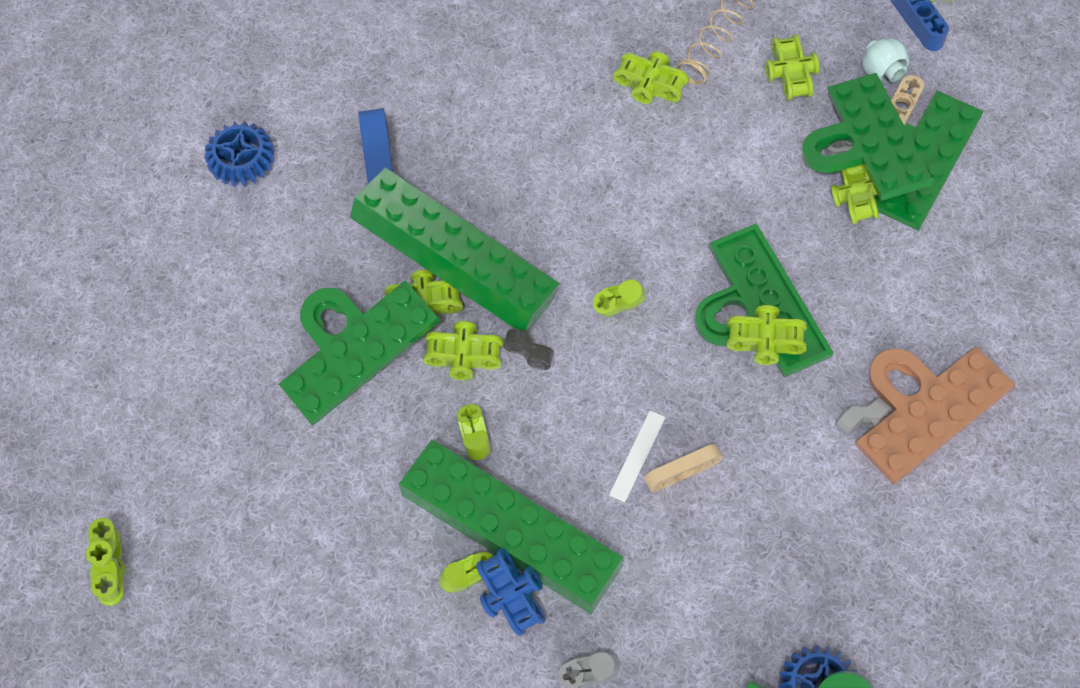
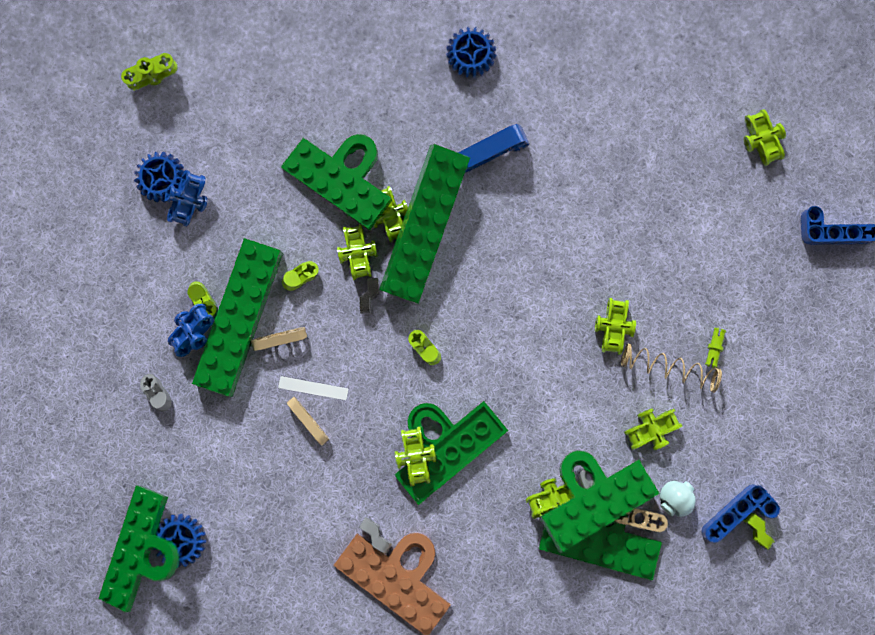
camera: 75 degrees right, 20 degrees up
(250, 572) = (156, 183): none -> blue gear
(301, 549) = (186, 198): none -> blue axle
(556, 477) = (279, 338): none -> tan beam

